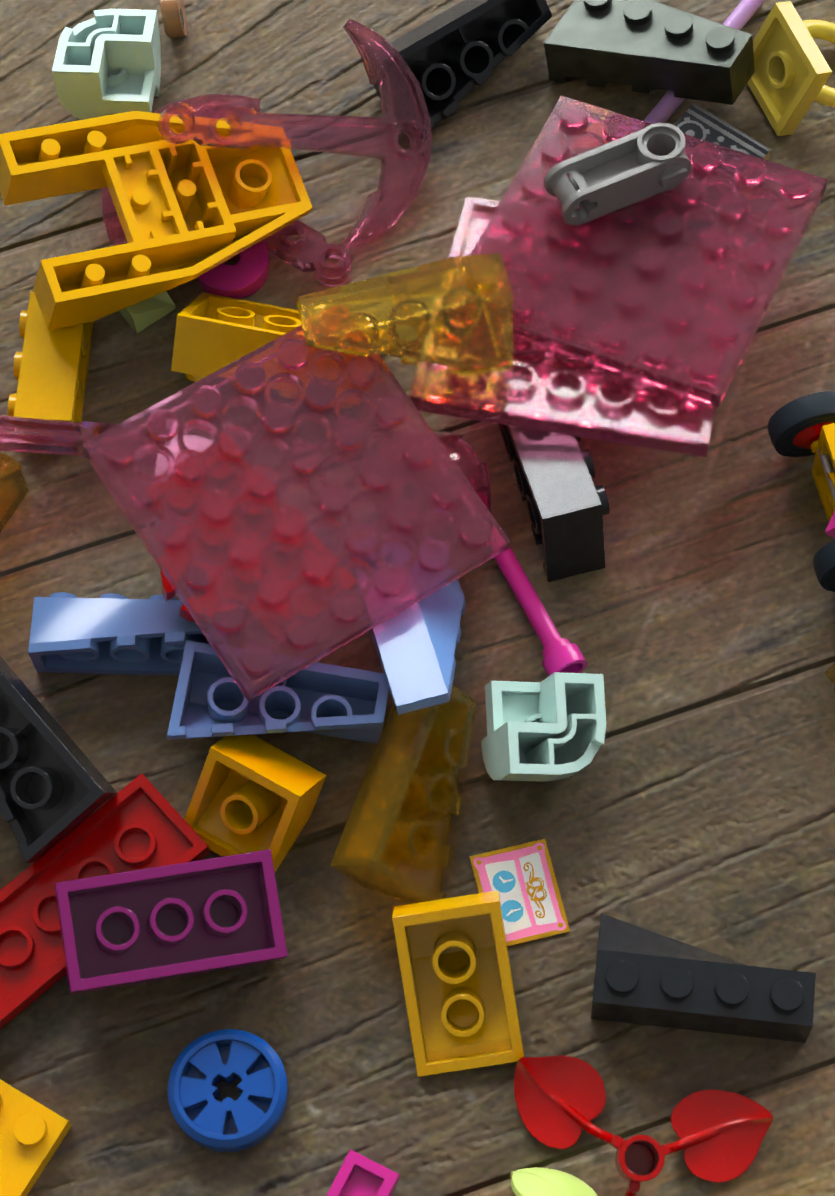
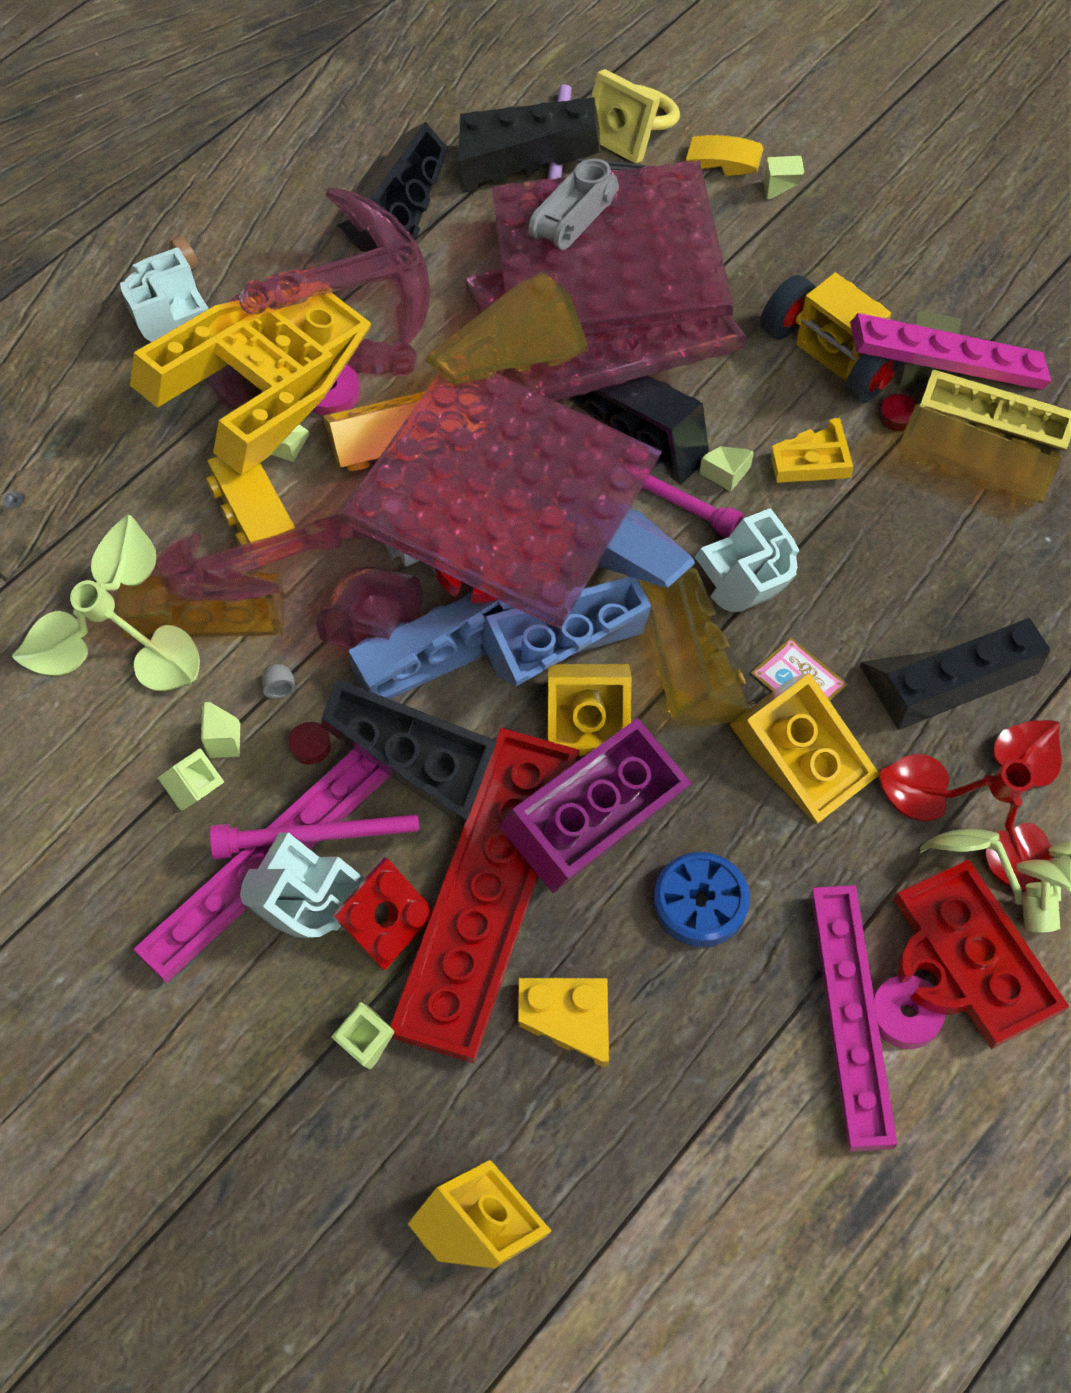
camera: 35 degrees left, 5 degrees down
(91, 554) = (368, 603): none -> clear pink brick
(611, 587) = (726, 466): none -> yellowish green slope
(721, 628) = (813, 456): none -> yellow wing

